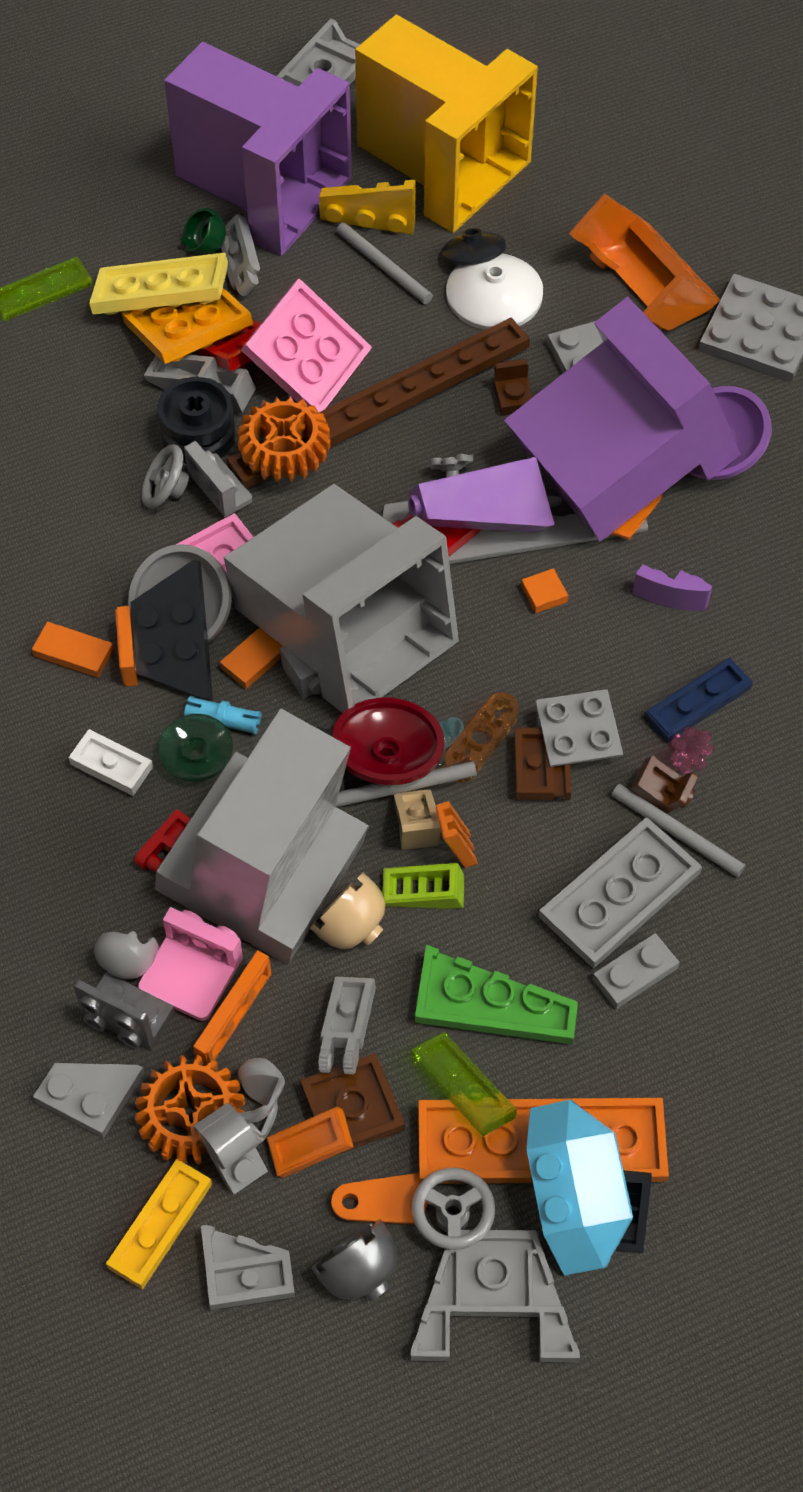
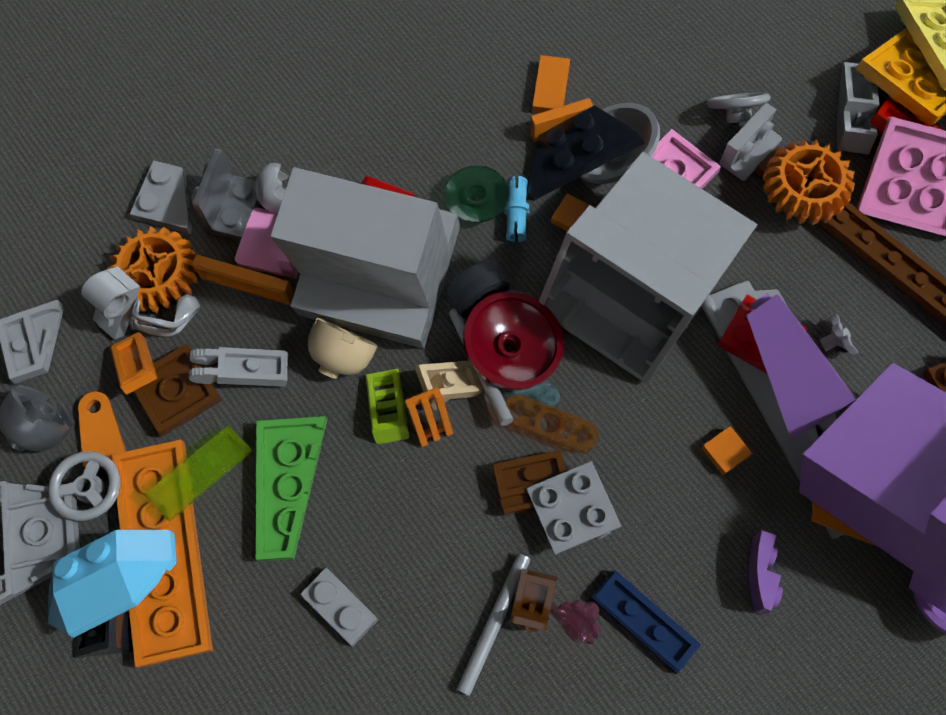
camera: 80 degrees right, 10 degrees up
(110, 762) = (449, 138): white plate -> none
(159, 1224) = (52, 268): yellow plate -> none
(197, 412) = (810, 108): black wheel -> none
(620, 892) = (414, 578): light grey plate -> none

